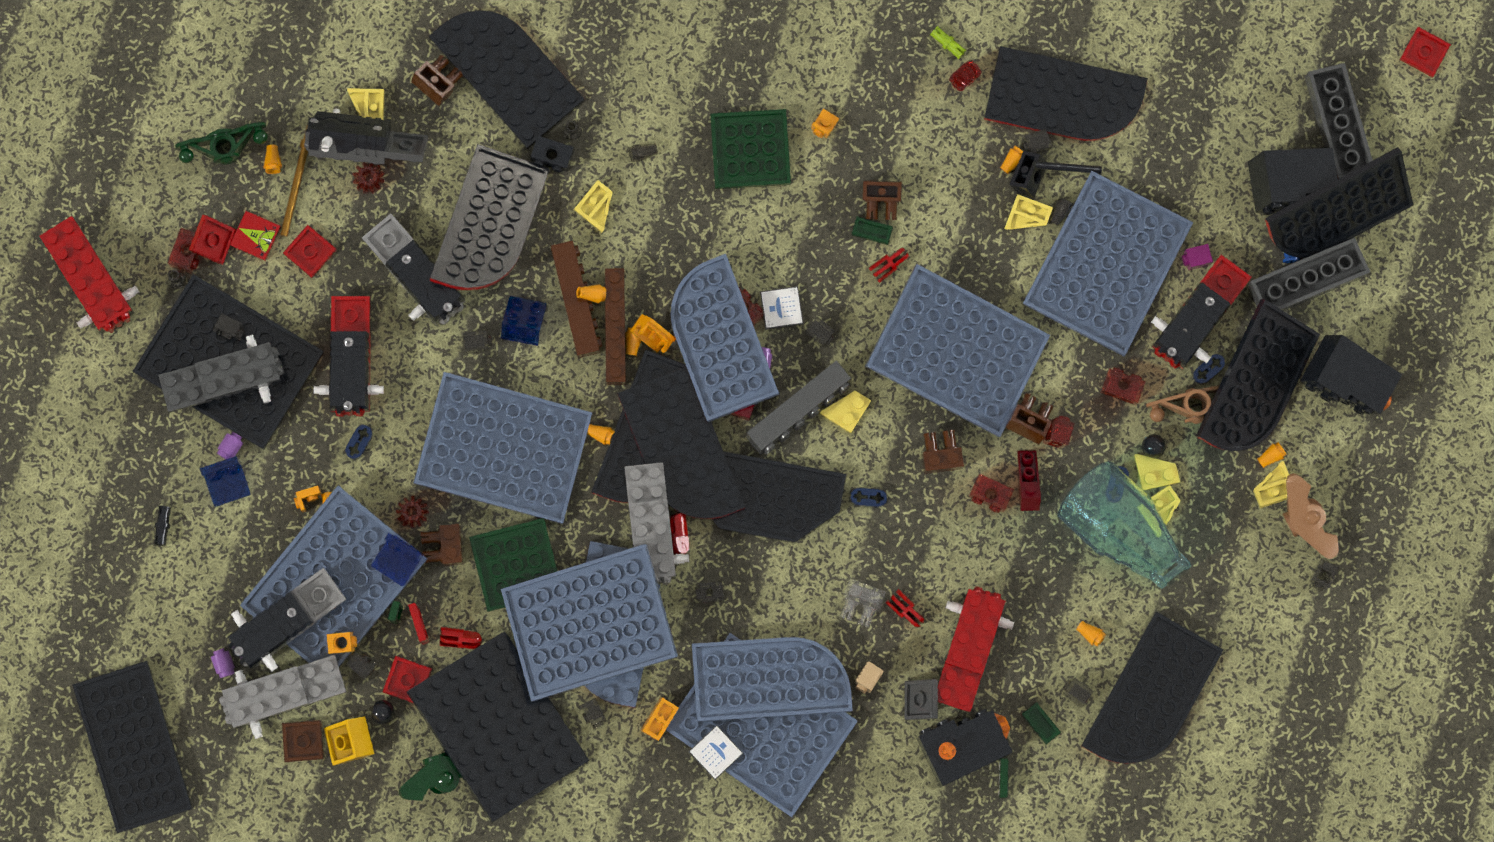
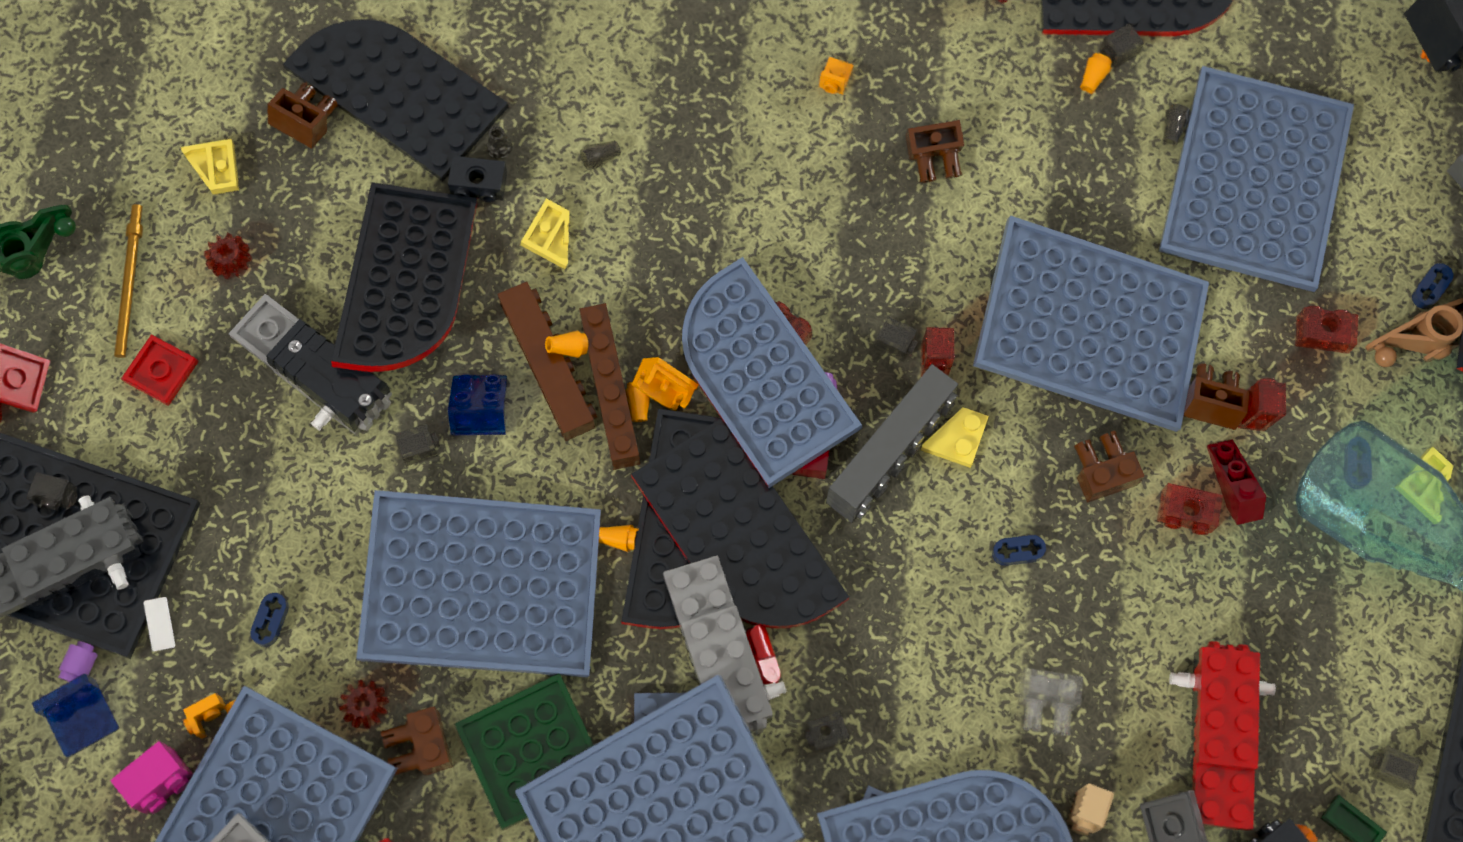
camera: 10 degrees left, 10 degrees down
(255, 236) = (79, 364): red tile -> none
(270, 533) = (153, 778): none -> dark pink brick
(272, 160) = (89, 259): light orange cone -> none
(286, 430) = (159, 624): none -> white sticker
(350, 357) = (236, 502): piece -> none
(360, 139) = (204, 205): piece -> none
(397, 559) = (350, 777): clear blue bracket -> none
(750, 149) = (744, 124): dark green plate -> none
(781, 308) = (834, 318): white tile -> none
(781, 498) = (897, 576): black plate -> none
(845, 350) = (937, 349): none -> clear red brick
(872, 230) = (932, 196): dark green tile -> none
(890, 263) = (967, 231): red arm -> none
(905, 609) = (1115, 697): red arm -> none
(1025, 178) = (1122, 83): black brick -> none
(1027, 214) = (1134, 135): light yellow wing -> none
(1066, 167) = (1163, 64): black bar -> none
(1091, 633) = (1387, 677): light orange cone -> none
(1153, 446) = (1393, 399): black piece -> none
(1155, 472) = (1412, 432): light yellow wing -> none
(1197, 257) = (1373, 146): magenta brick -> none
(1199, 314) = (1401, 217): black piece -> none

